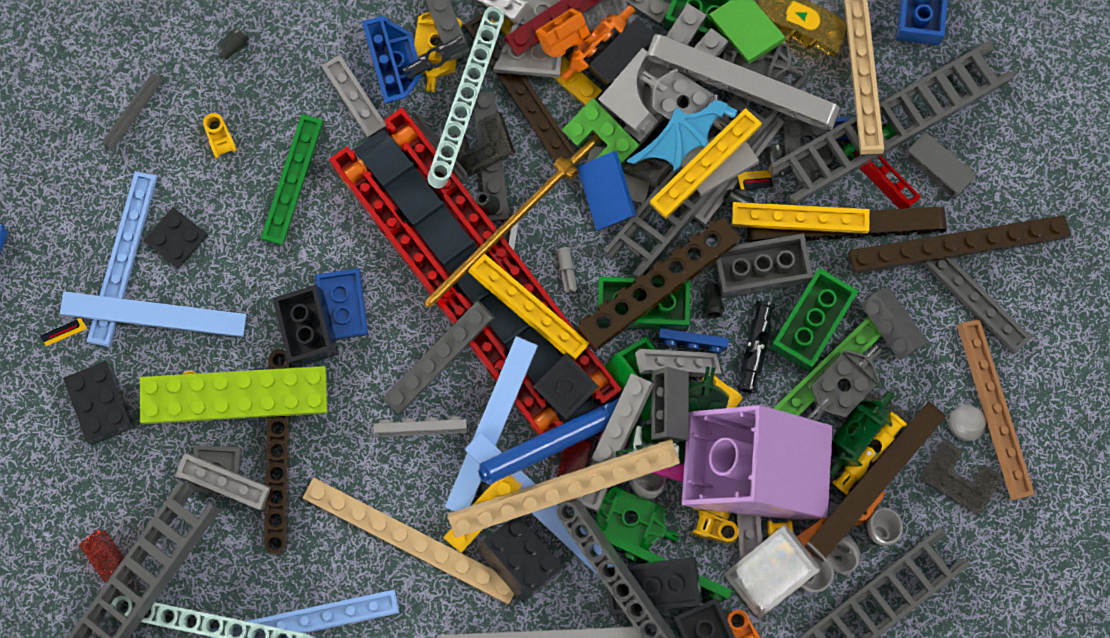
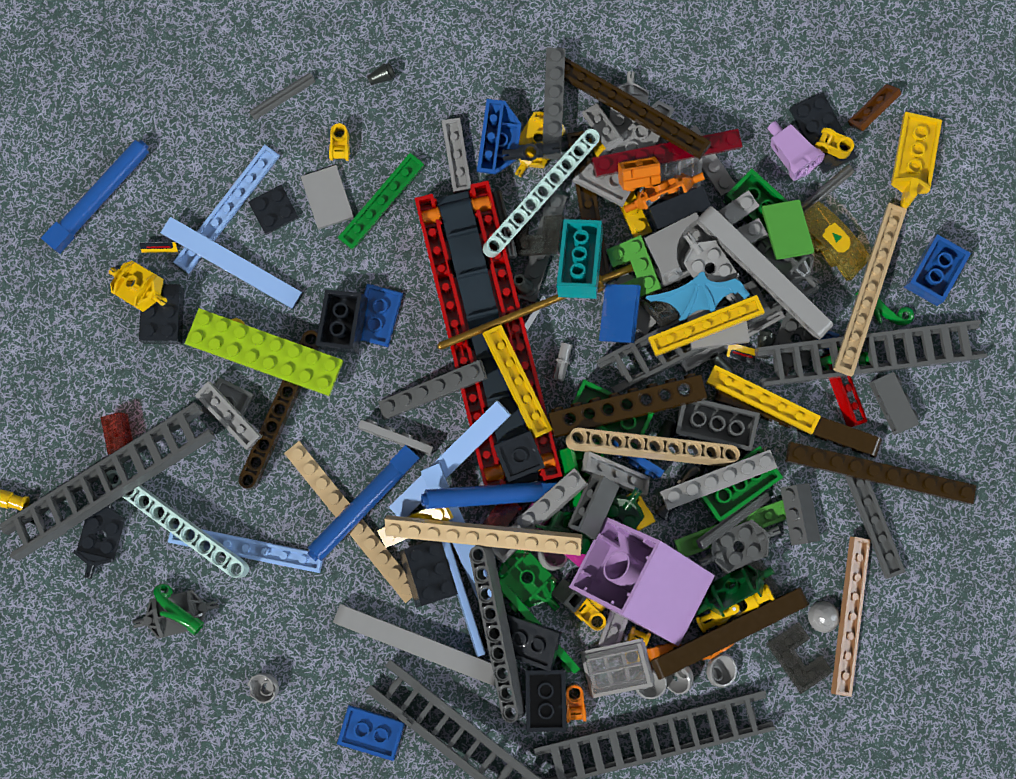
camera: 25 degrees right, 5 degrees up
(70, 385) = (145, 289): none -> yellow plate
(230, 200) = (327, 197): none -> light grey tile
(415, 514) = (363, 503): none -> blue brick
(538, 149) = (580, 259): none -> teal brick
(575, 574) = (464, 602): none -> light blue tile
(684, 517) = (568, 596): none -> pearl dark grey brick
(698, 323) = (644, 451): none -> tan beam
(790, 322) = (718, 479): none -> light grey plate
(825, 359) = (732, 520): none -> dark grey axle
(891, 74) = (882, 309): none -> green plant

